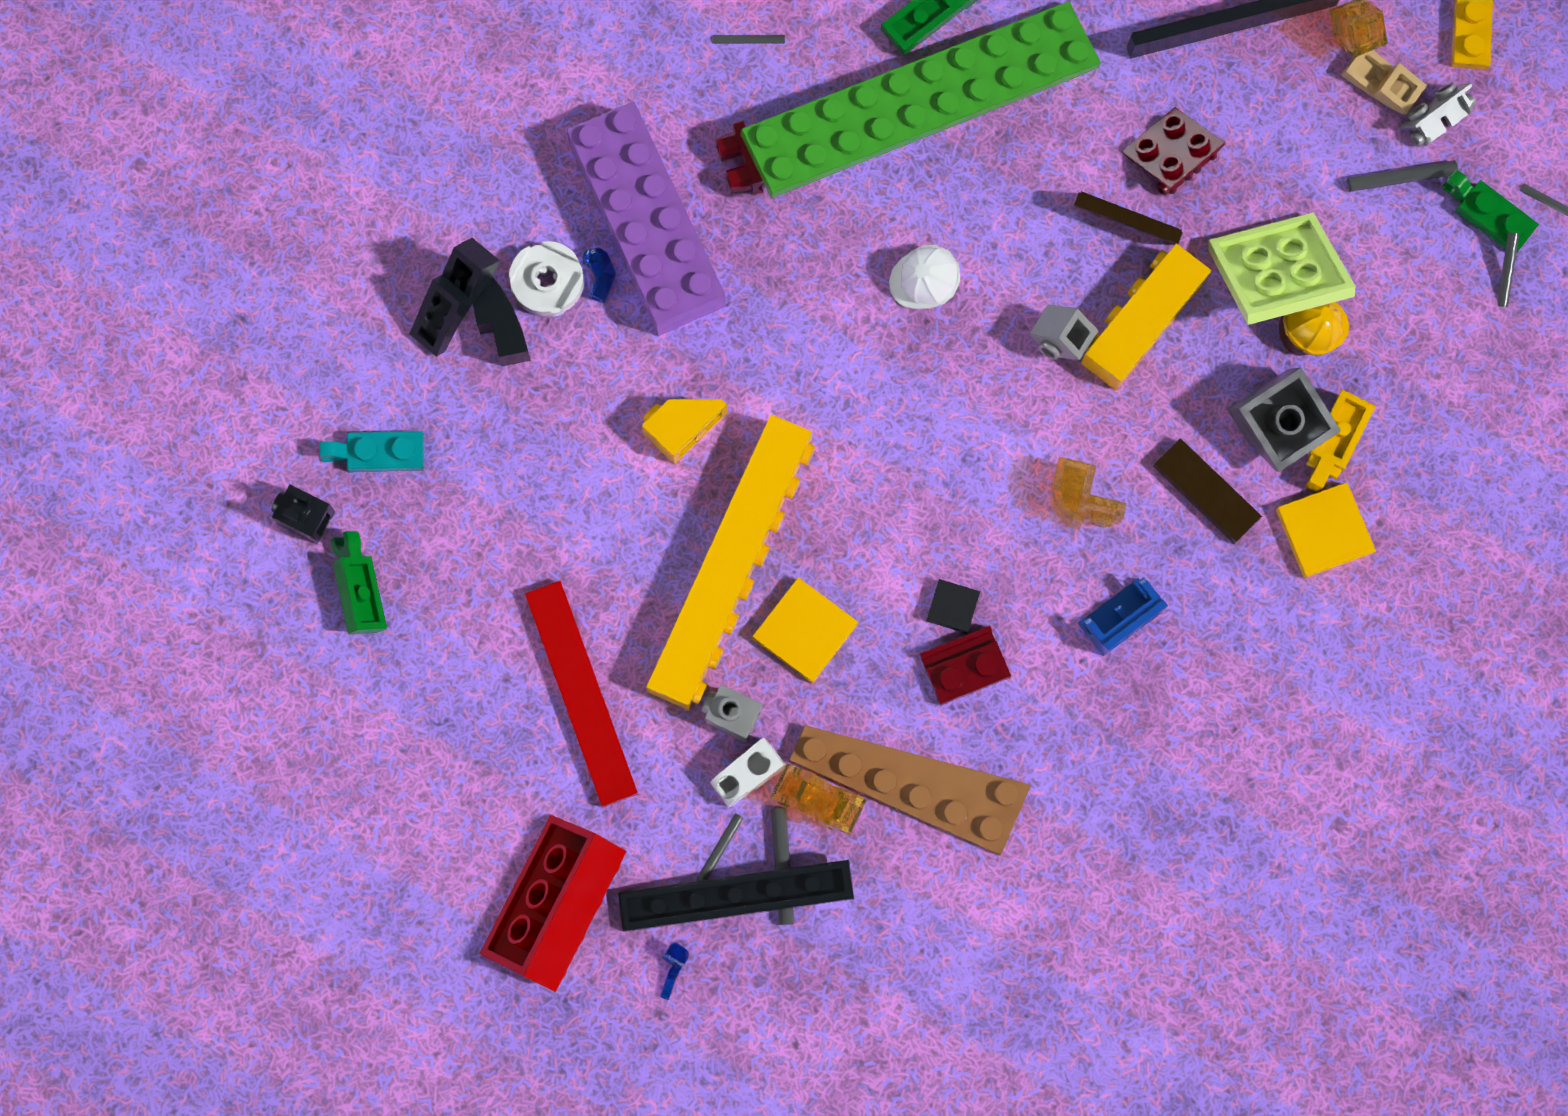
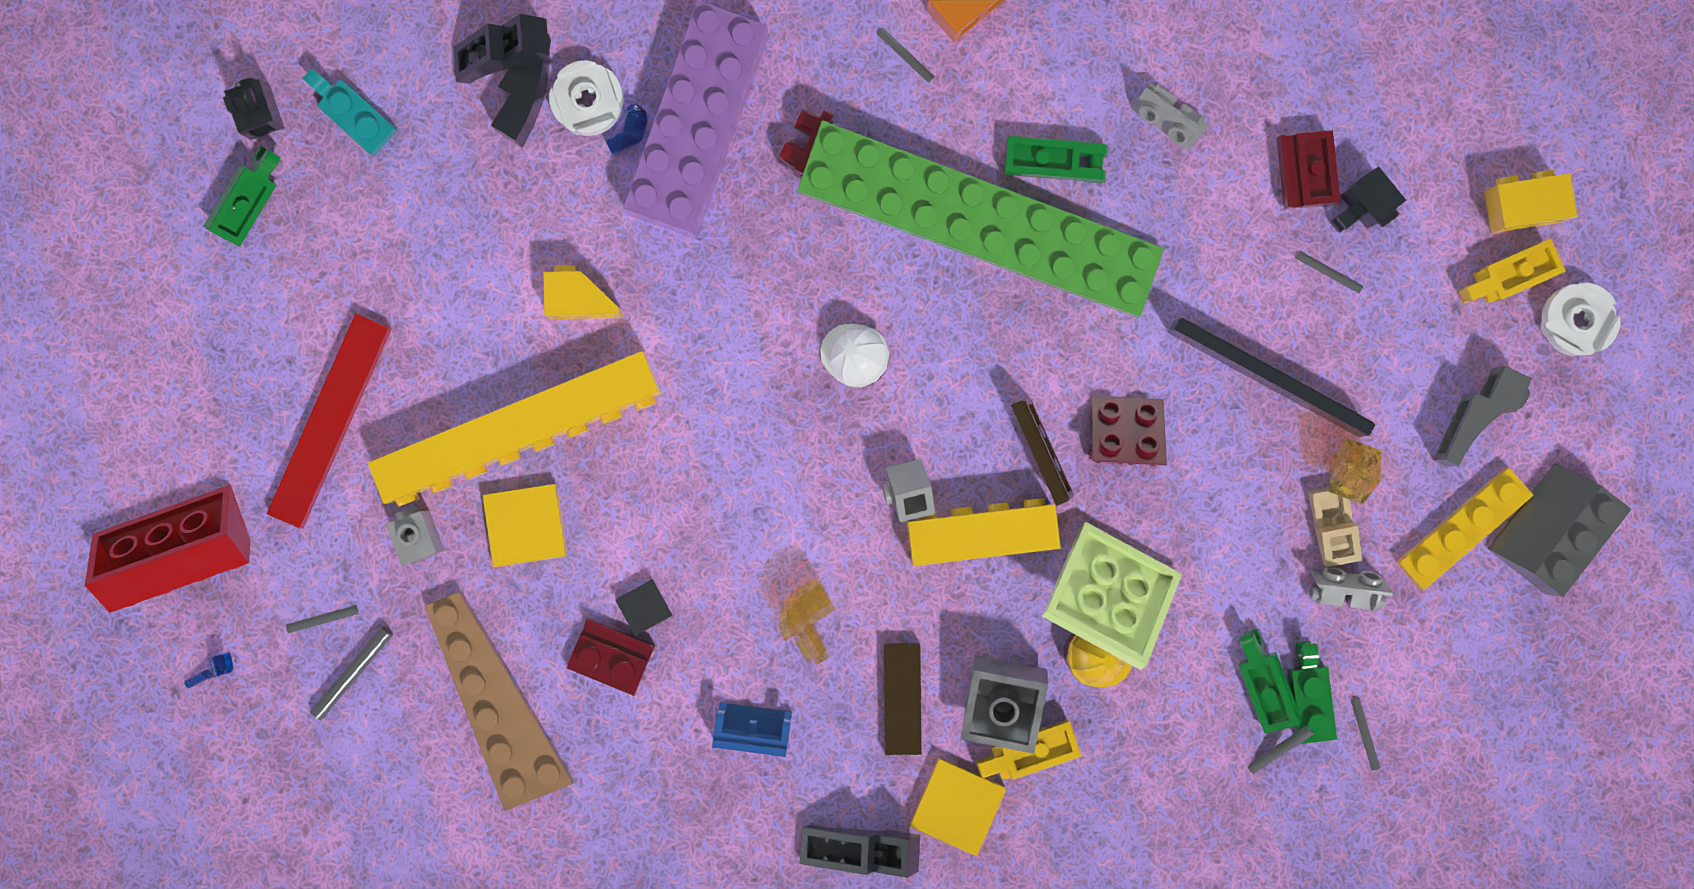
camera: 45 degrees right, 10 degrees up
(736, 895) = (297, 665): black tile -> none
(748, 772) = (388, 588): white leg -> none
(817, 799) = (414, 654): clear yellow brick -> none
(1288, 627) = (860, 850): none -> black slope
(1401, 176) = (1275, 608): dark grey bar -> none
(1453, 232) = (1267, 685): none -> green plate

